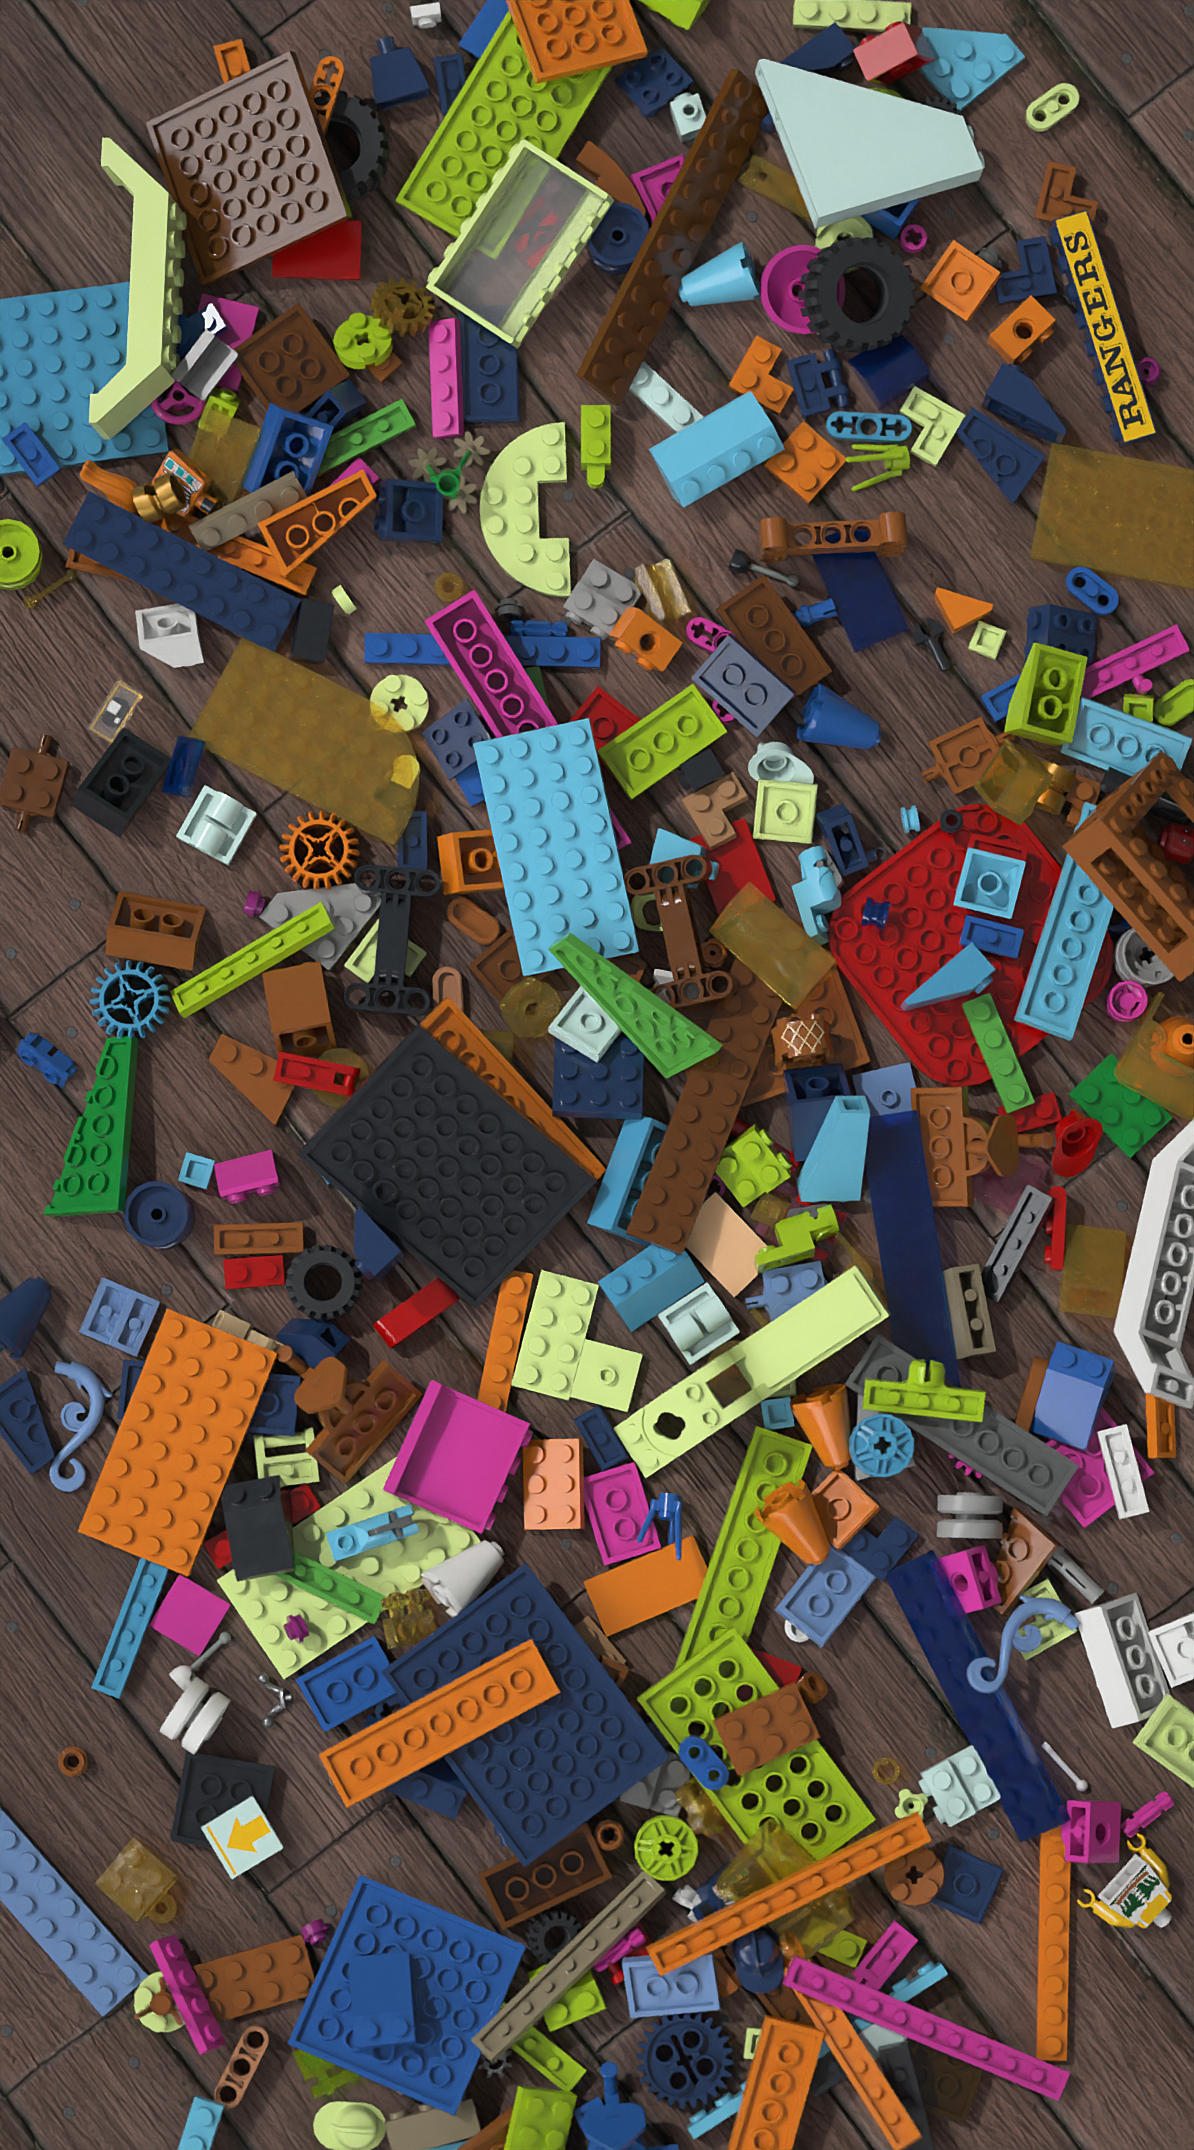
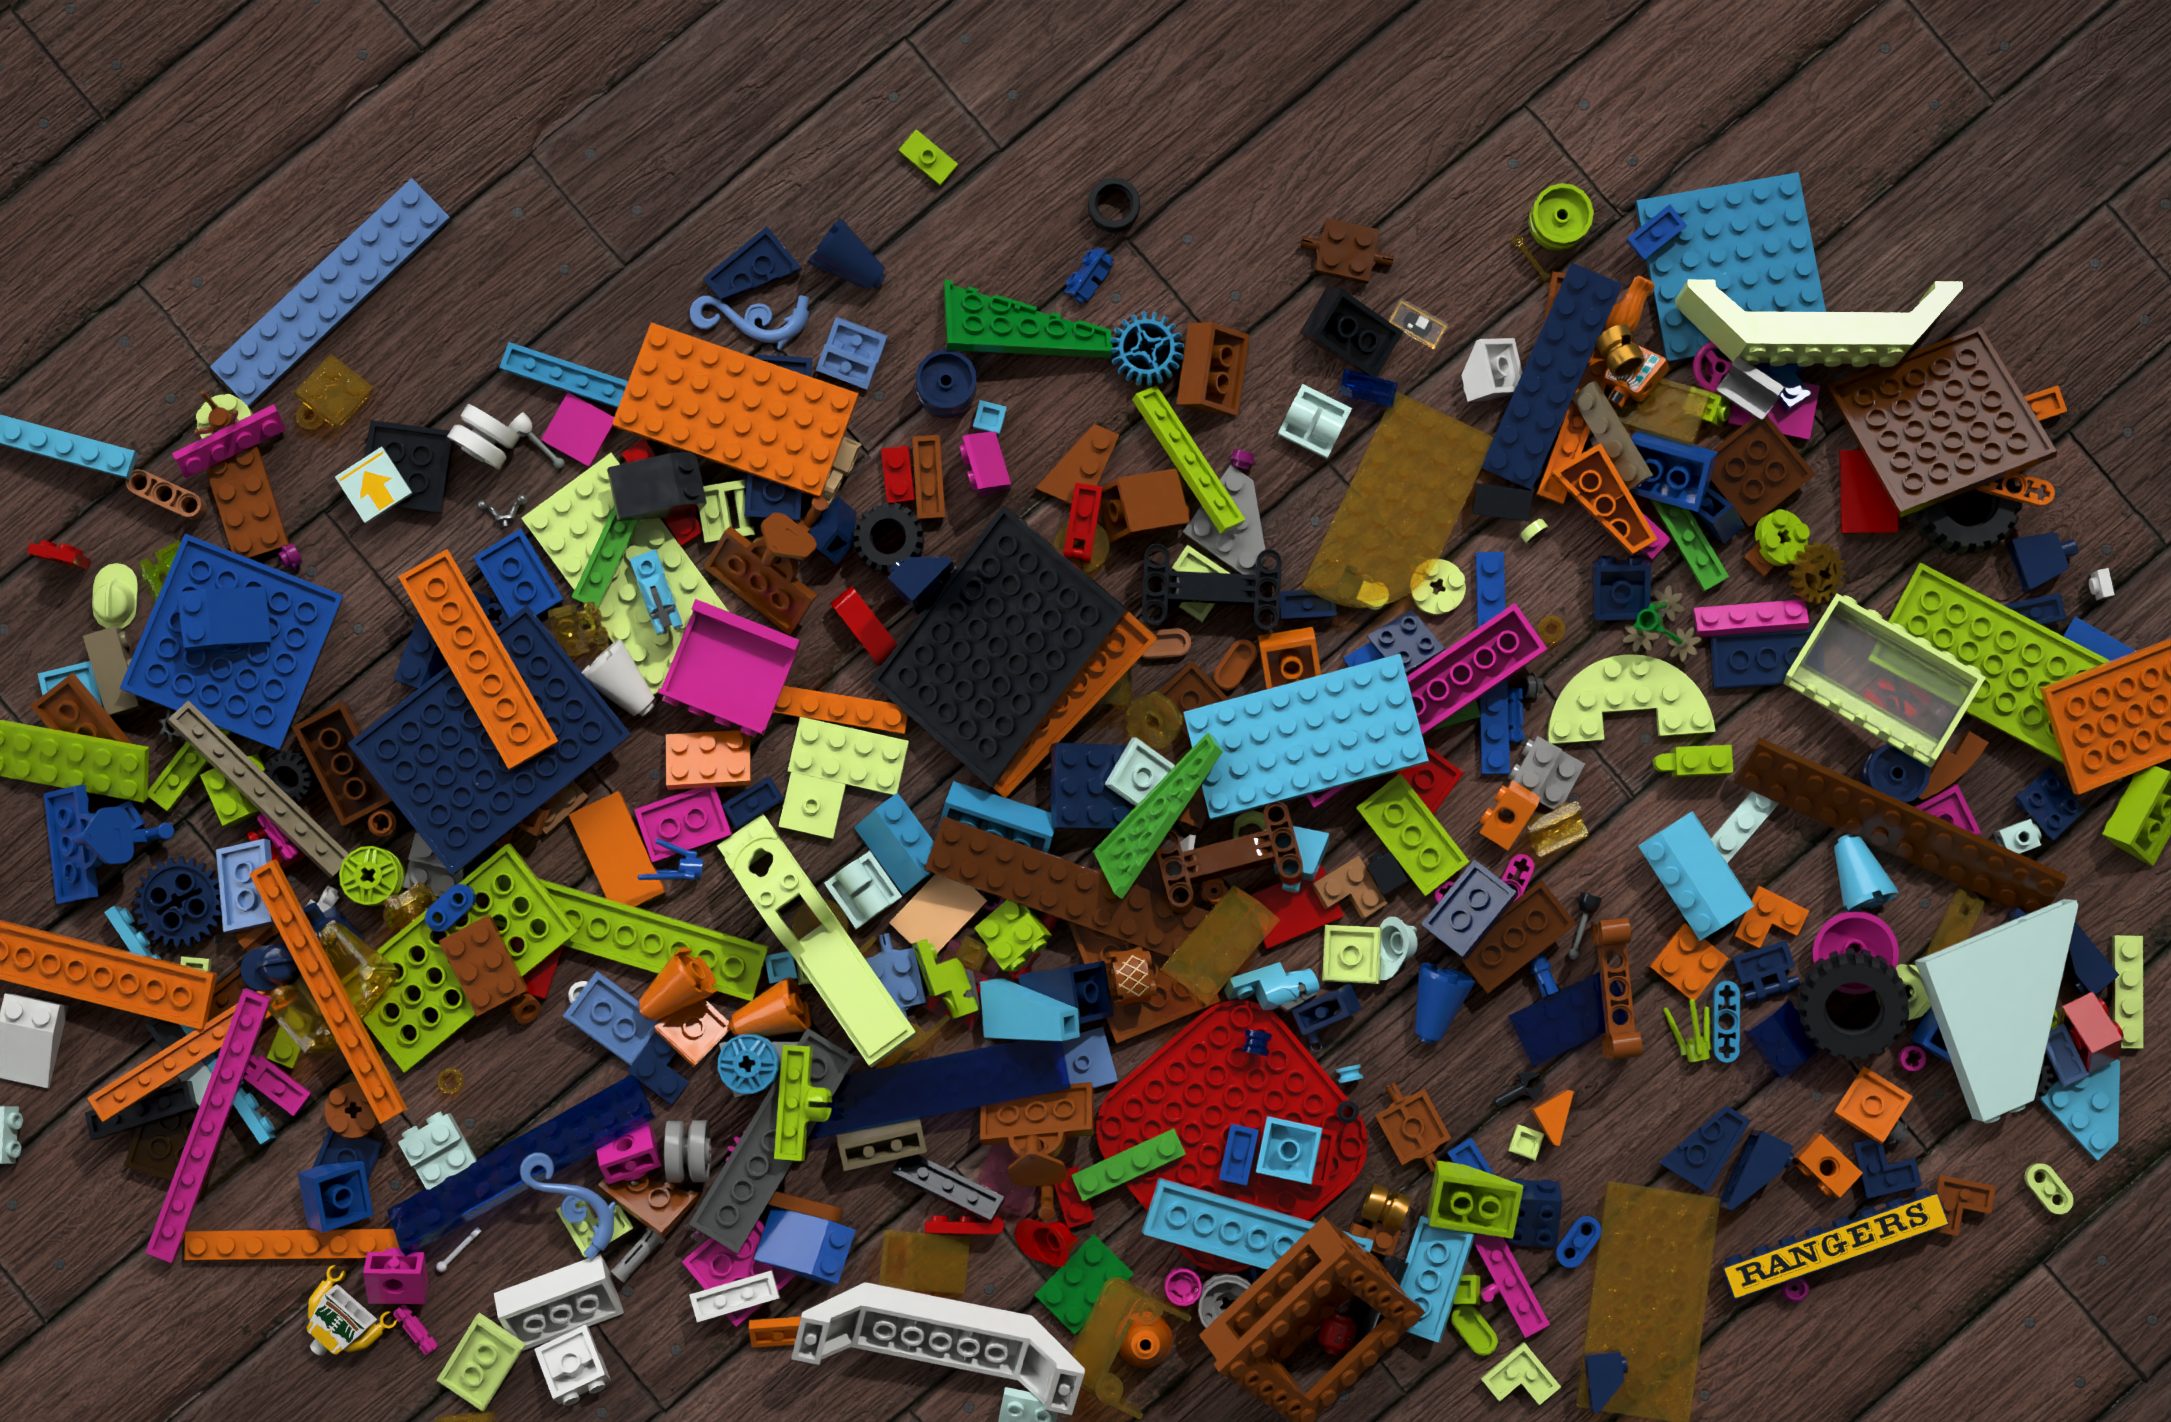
camera: 90 degrees right, 0 degrees up
(64, 1765) = (438, 322): dark orange plate -> none
(296, 1628) = (566, 525): magenta plate -> none
(310, 861) = (1285, 509): orange gear -> none
(906, 1798) = (425, 1101): yellowish green plate -> none
(917, 82) = (2064, 1056): none -> medium blue plate
(939, 424) = (1733, 1088): yellowish green plate -> none
(956, 979) = (1197, 1122): dark azure slope -> none
(1003, 1895) = (335, 1195): none -> blue slope
(1014, 782) = (1388, 1171): clear yellow brick -> none

